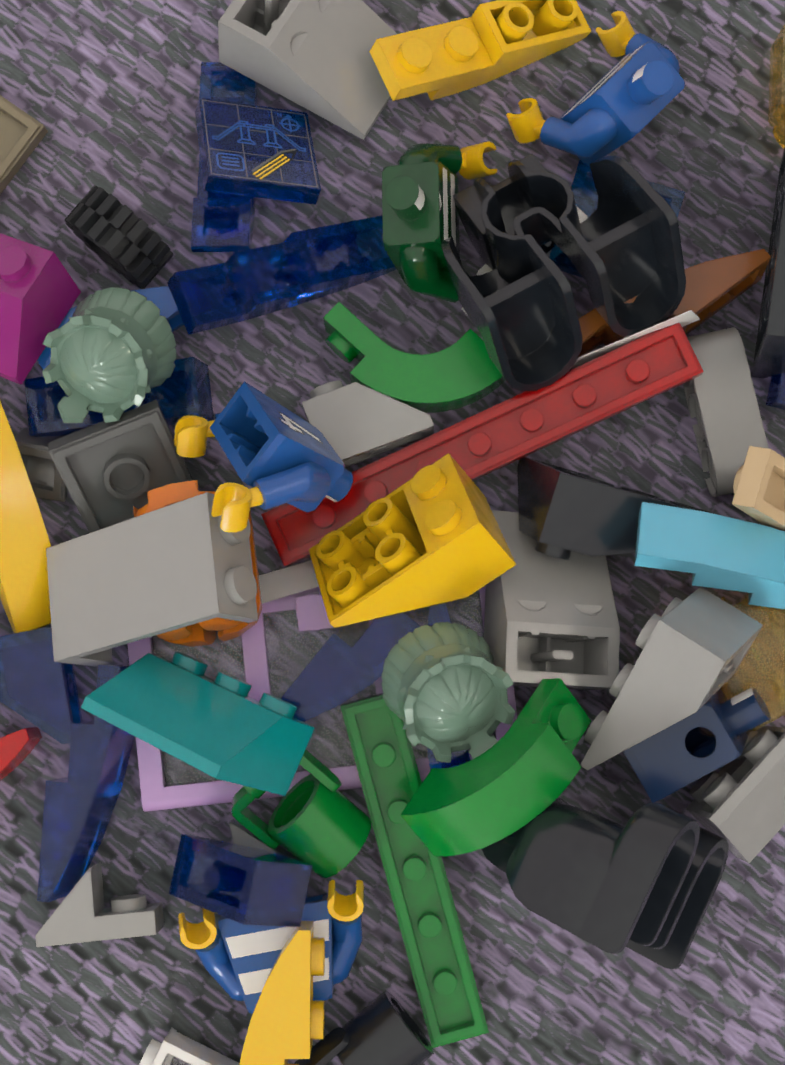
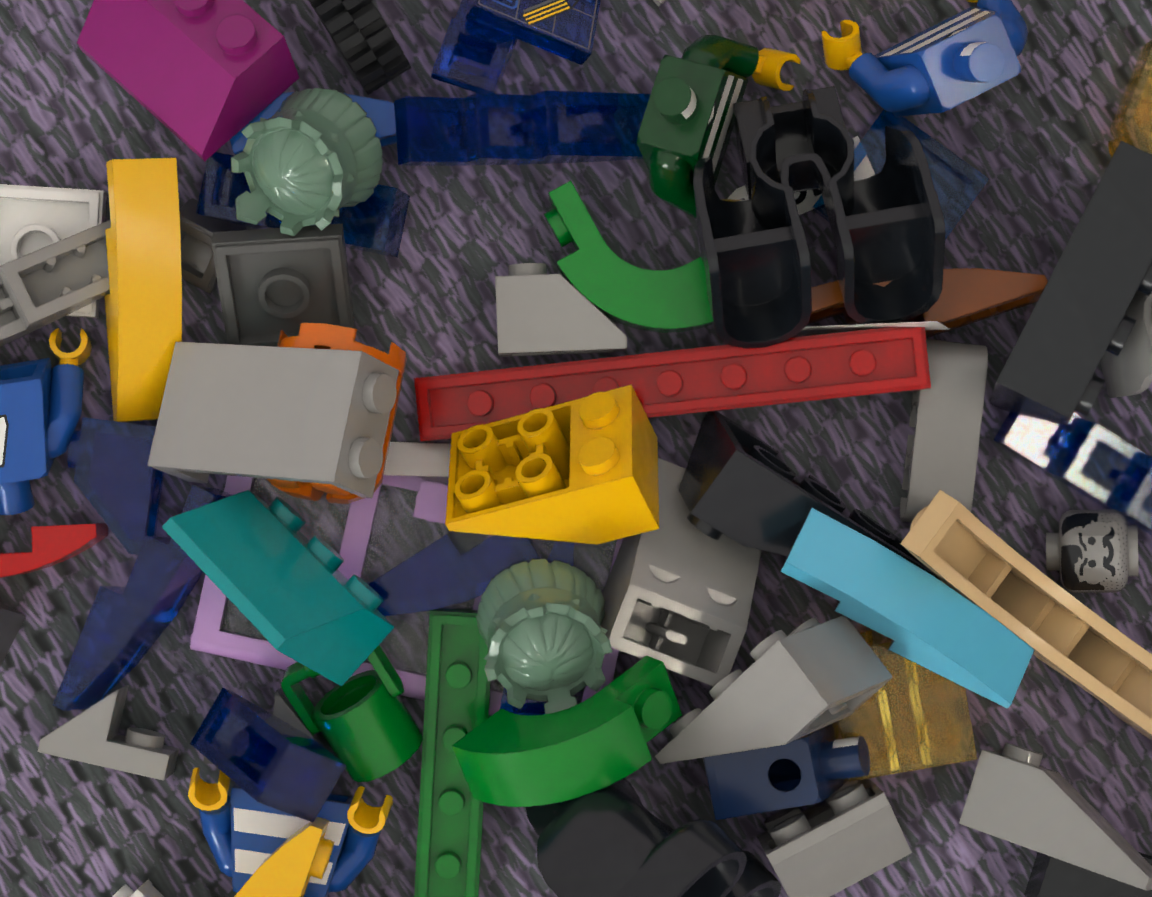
camera: 20 degrees right, 5 degrees up
(271, 452) = (443, 326): blue torso -> none

